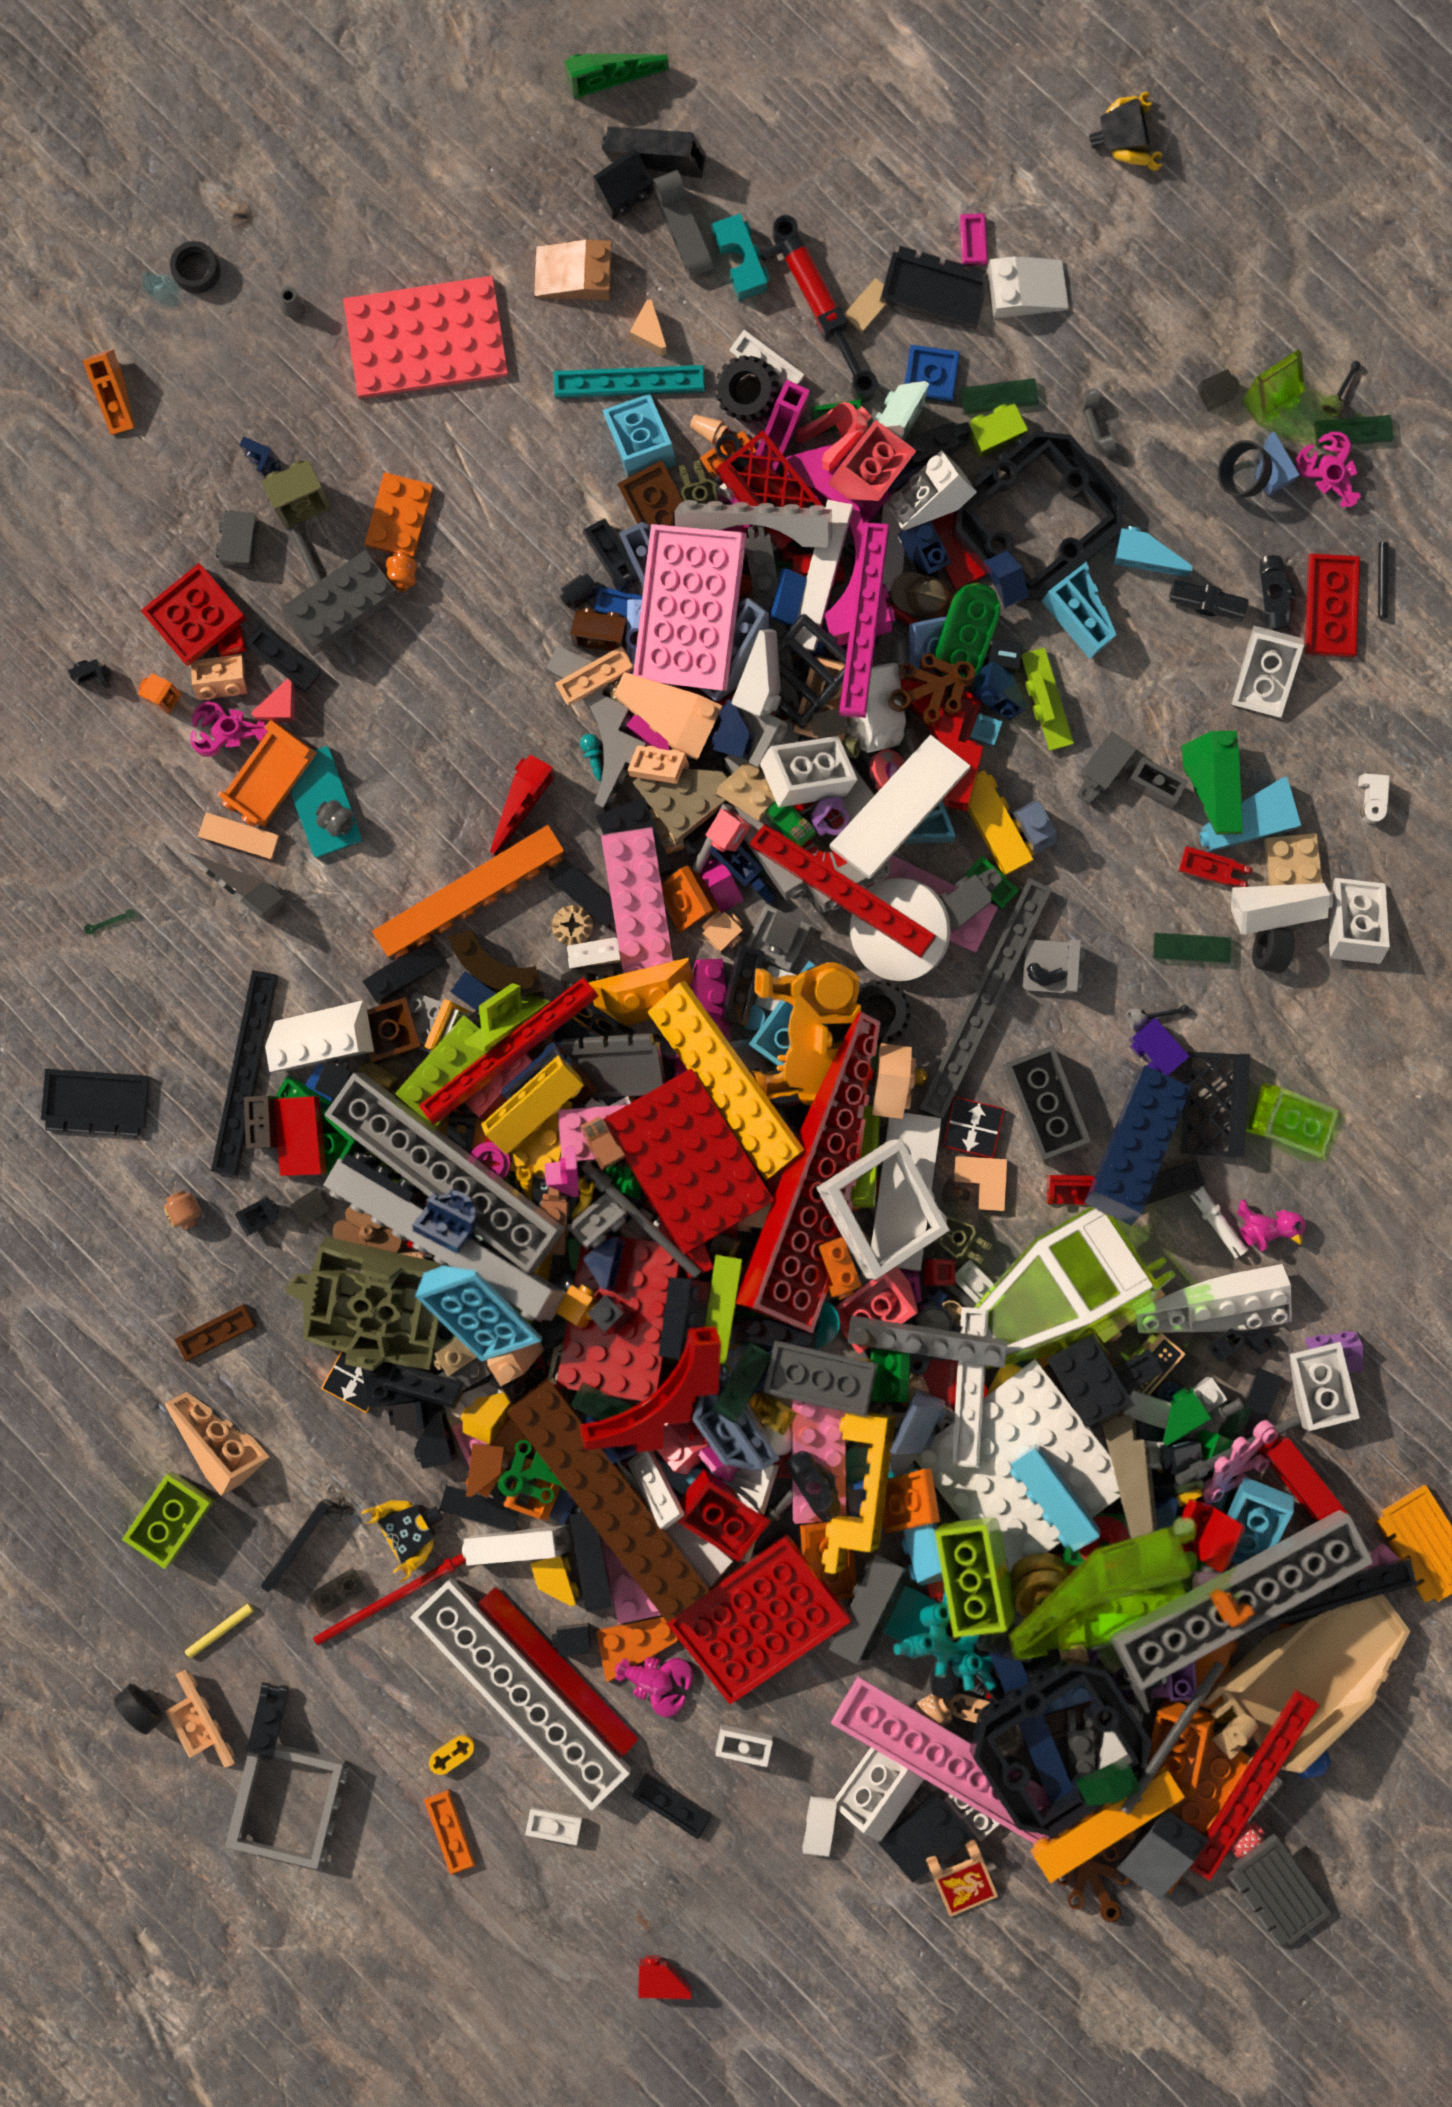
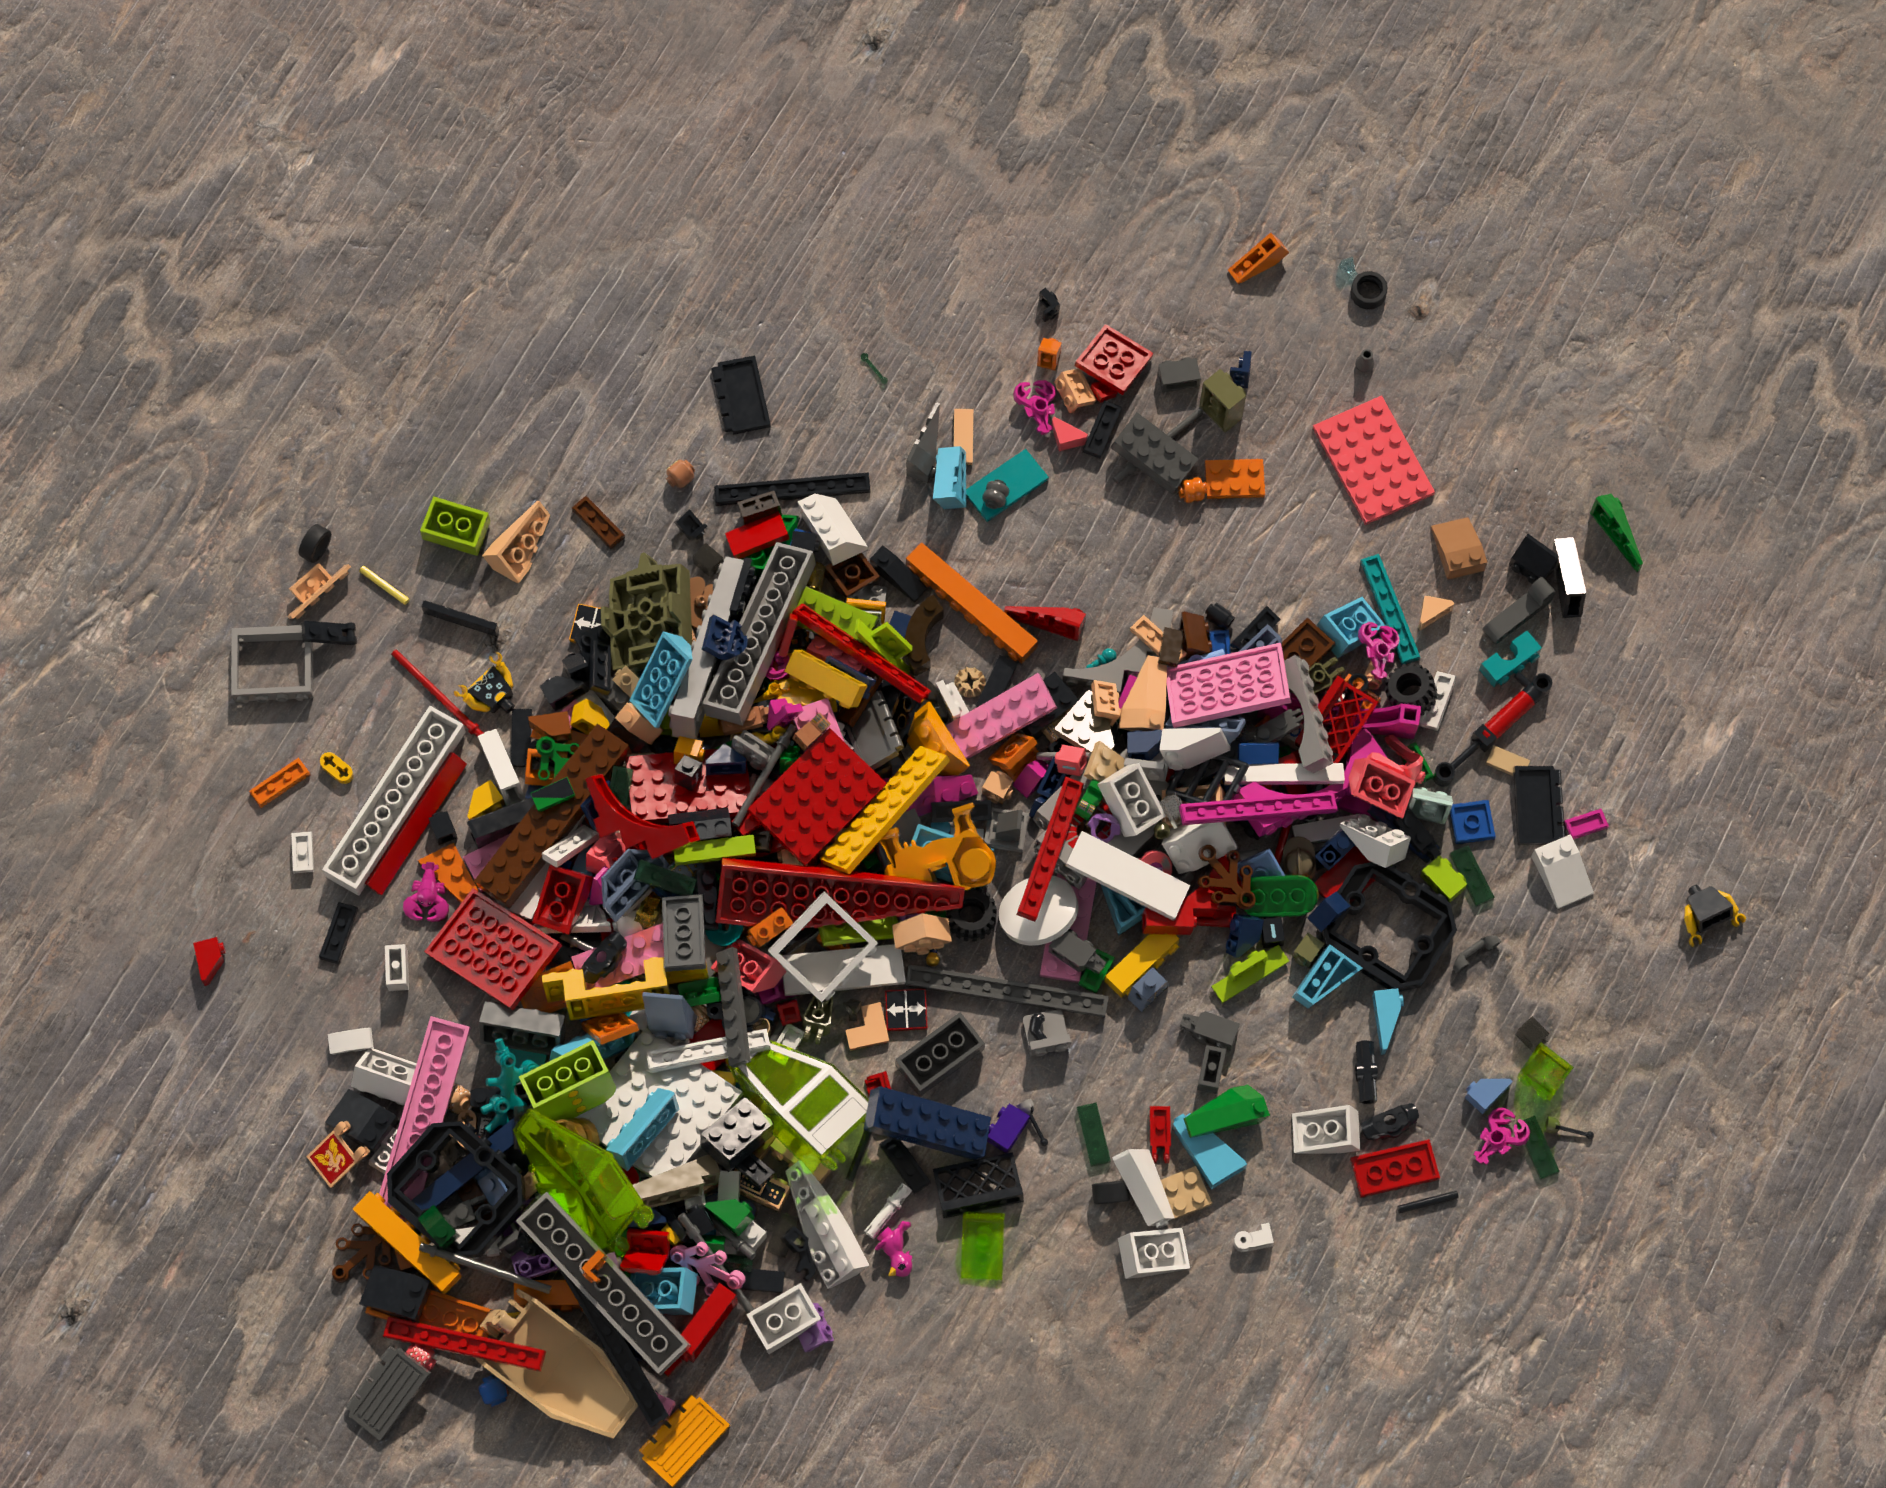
camera: 75 degrees right, 15 degrees down
(268, 775) = (1013, 442): orange panel -> none
(294, 868) = (950, 478): none -> medium azure wedge
(336, 1592) = (433, 656): clear smoke slope -> none
(459, 1136) = (788, 634): none -> red tile
(588, 1494) = (553, 794): none -> tile
(611, 662) = (1170, 647): none -> dark brown tile
(684, 409) = (1377, 649): none -> dark pink animal
(985, 730) = (1211, 935): medium azure plate -> none
(1039, 621) = (1307, 950): none -> olive brick
(1142, 1240) = (858, 1156): none -> black bar
(1190, 1750) = (480, 1289): orange slope -> none
(1227, 463) = (1475, 1058): black tyre -> none

